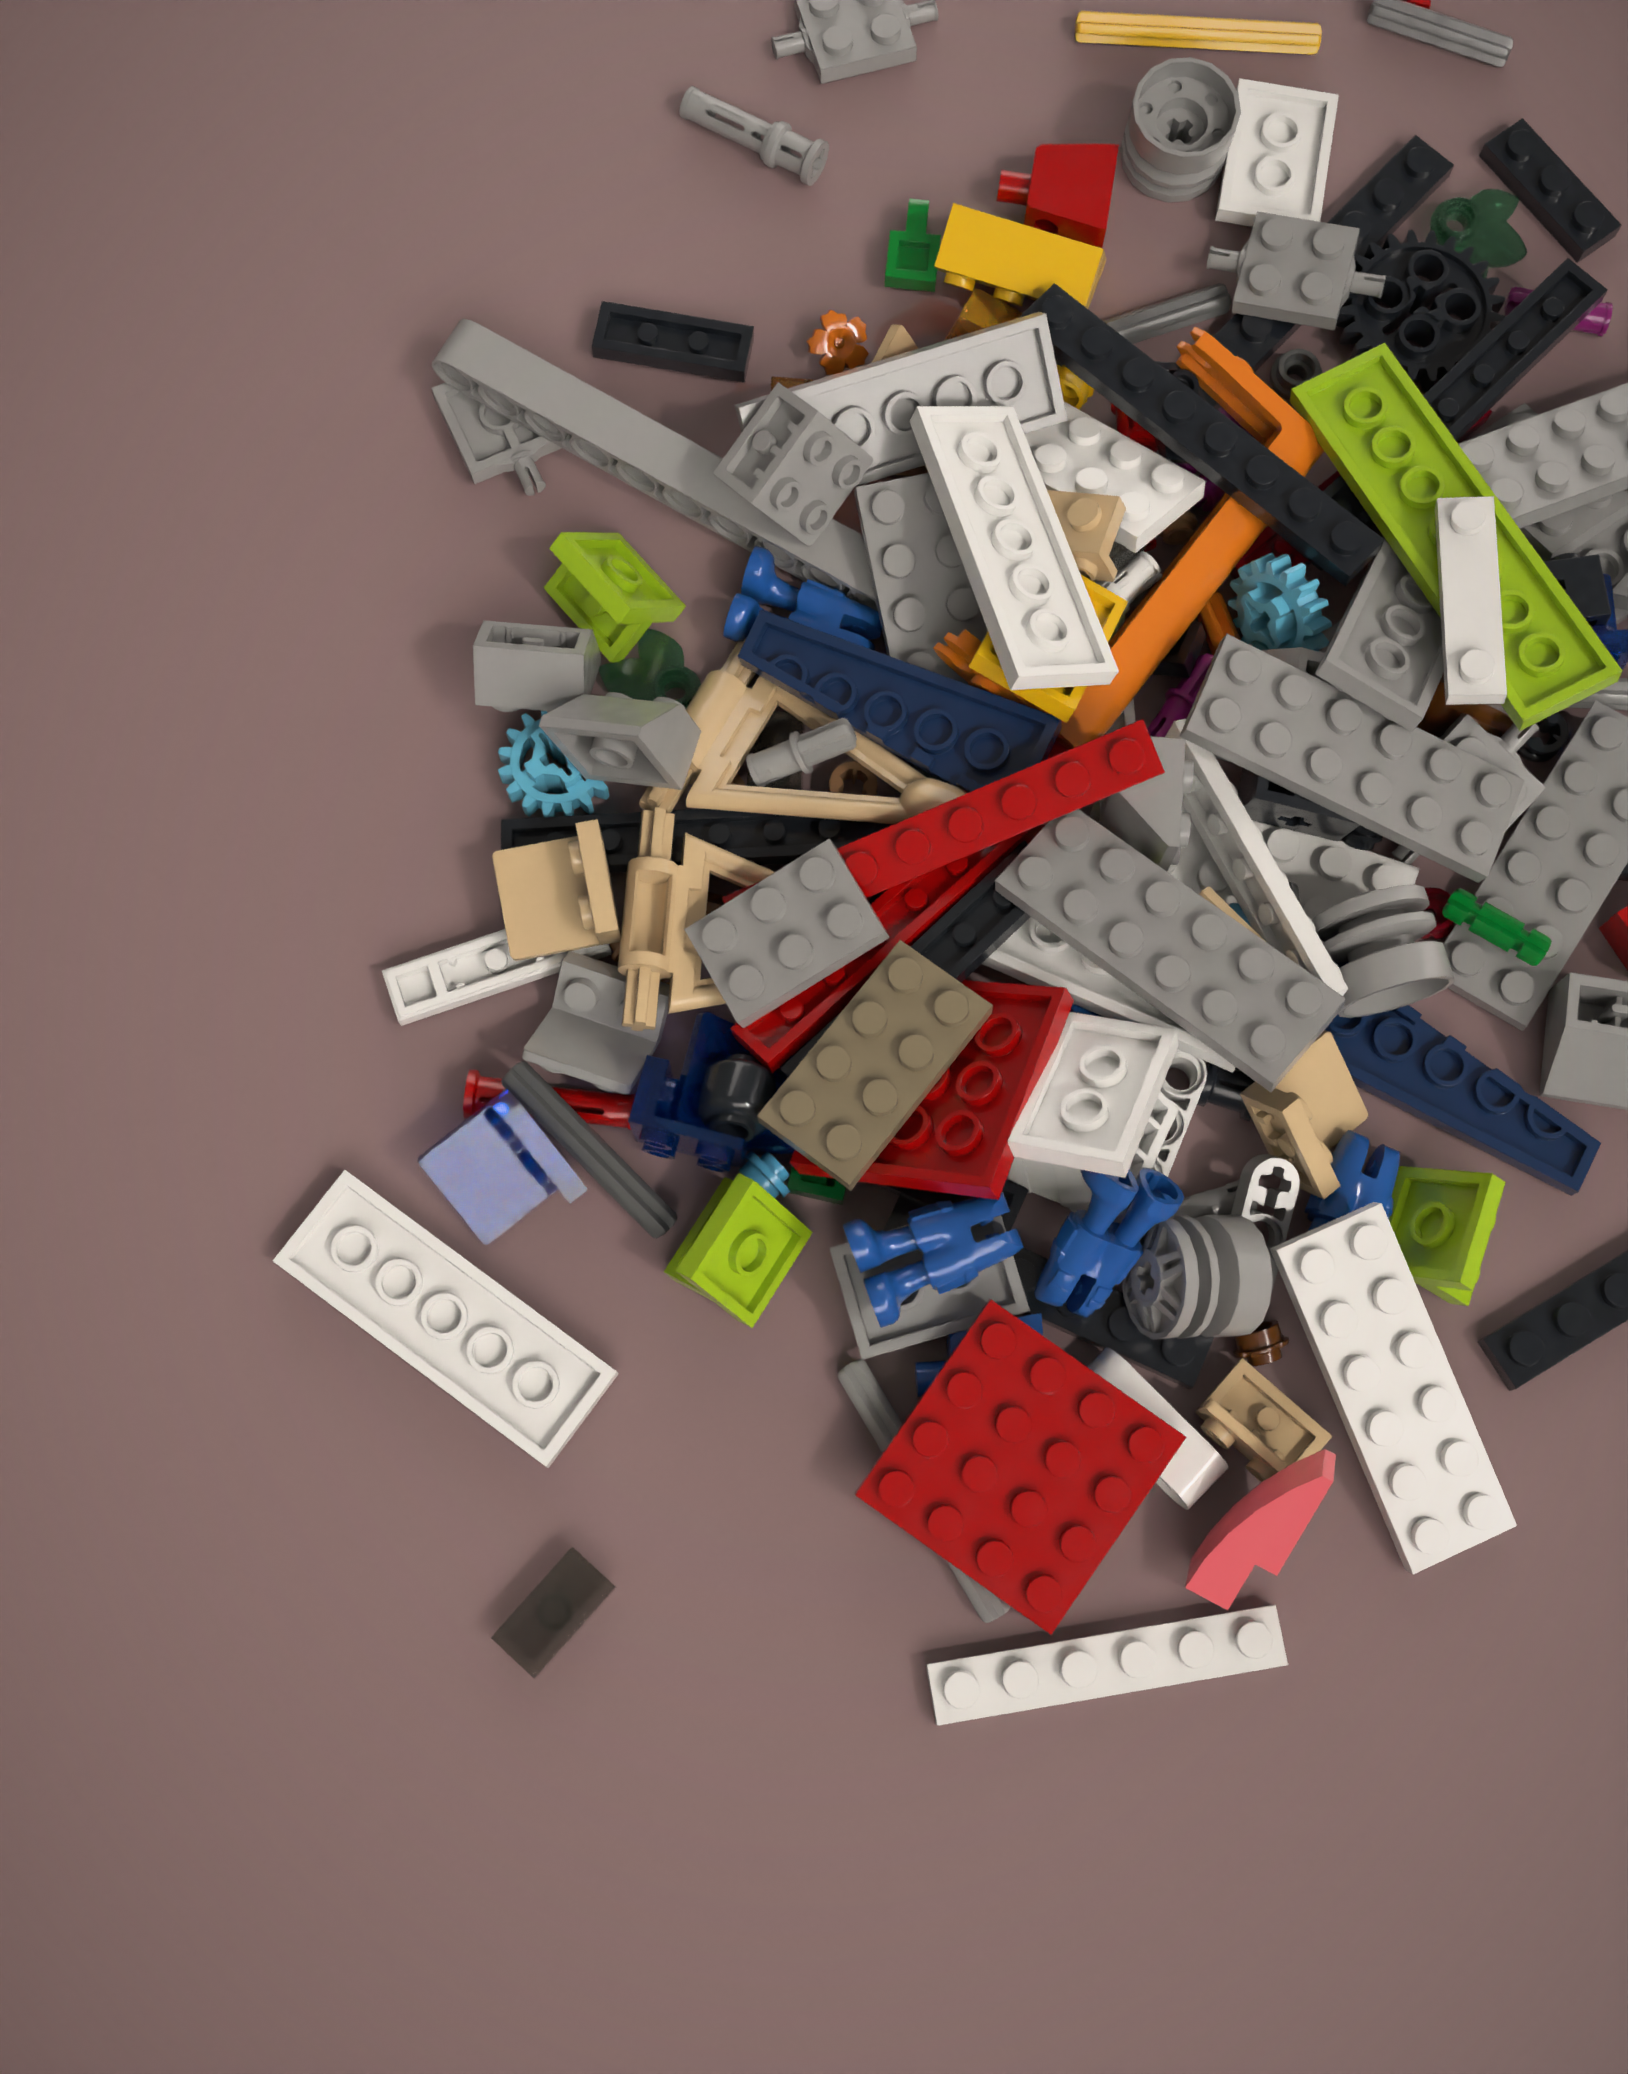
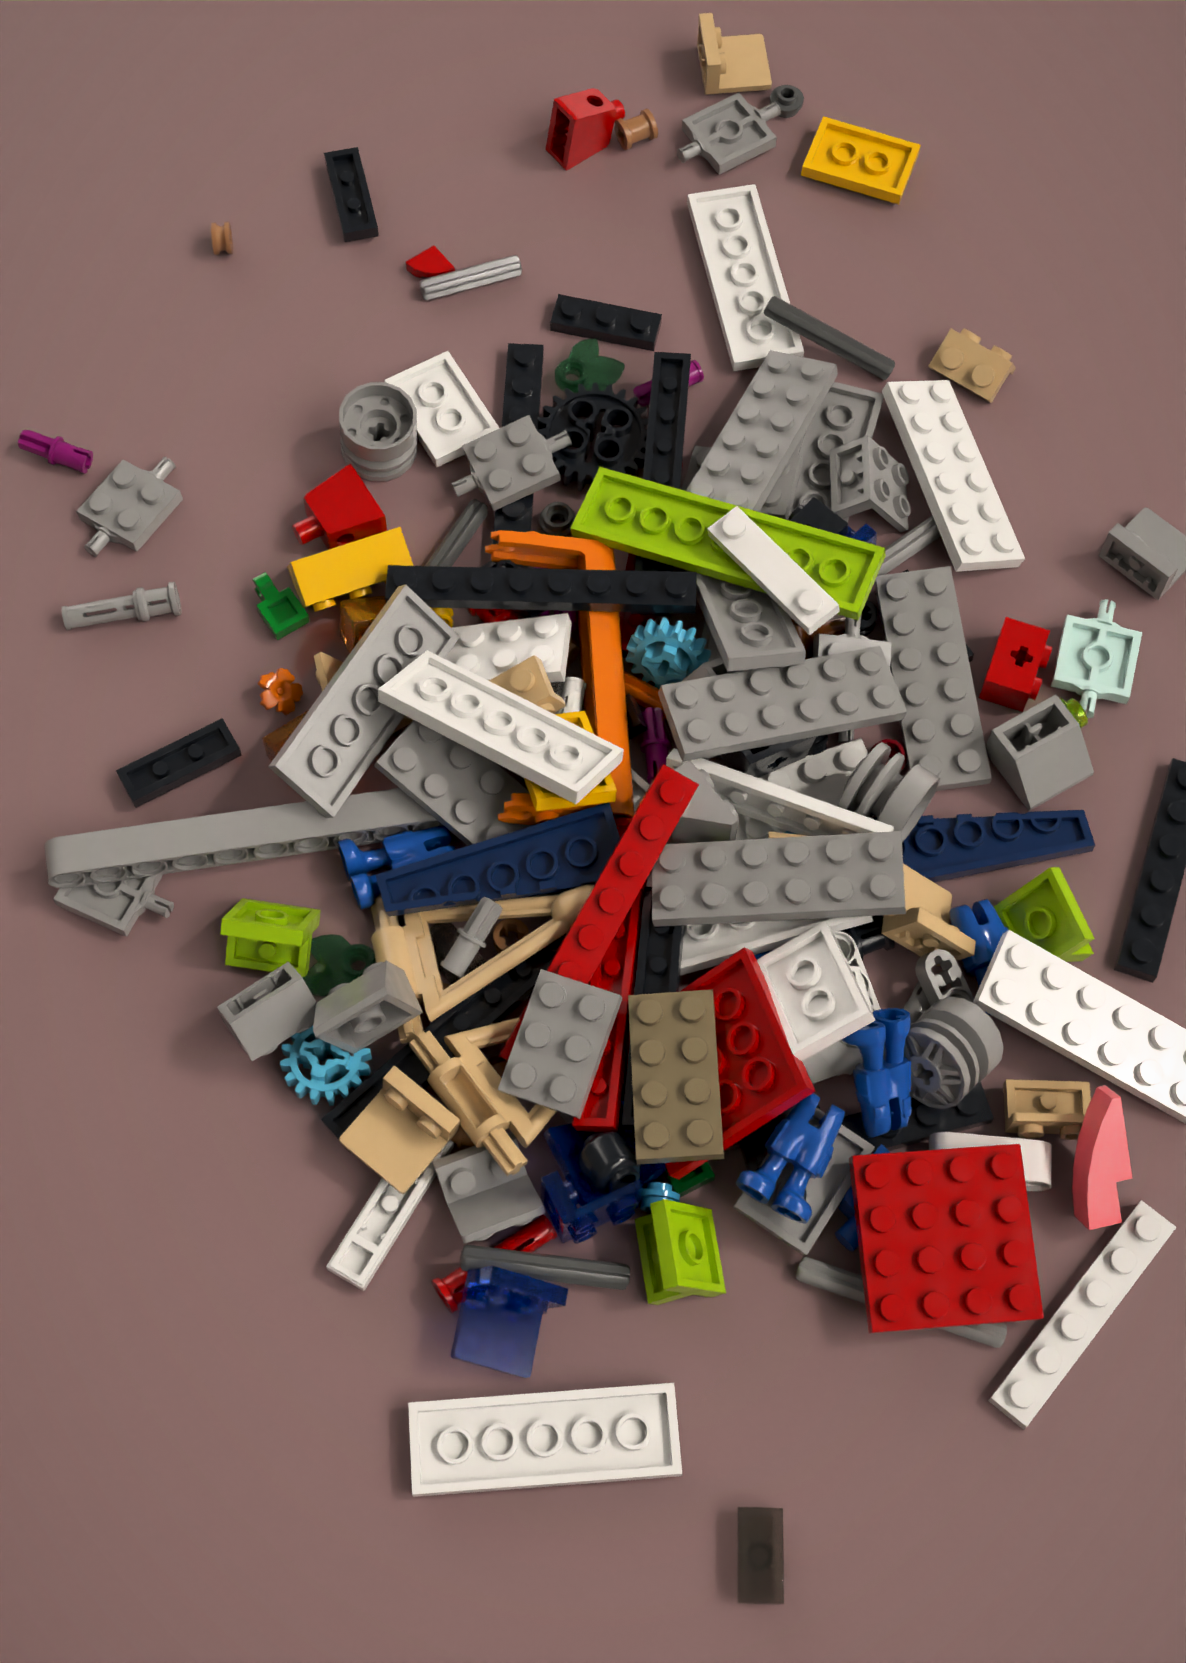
camera: 40 degrees left, 10 degrees down
(794, 464) = (331, 774): light grey bracket -> none
(1198, 32) = (334, 371): yellow axle -> none
(1262, 1344) = (1010, 1065): reddish brown plate -> none
(1496, 927) = (931, 736): green axle -> none

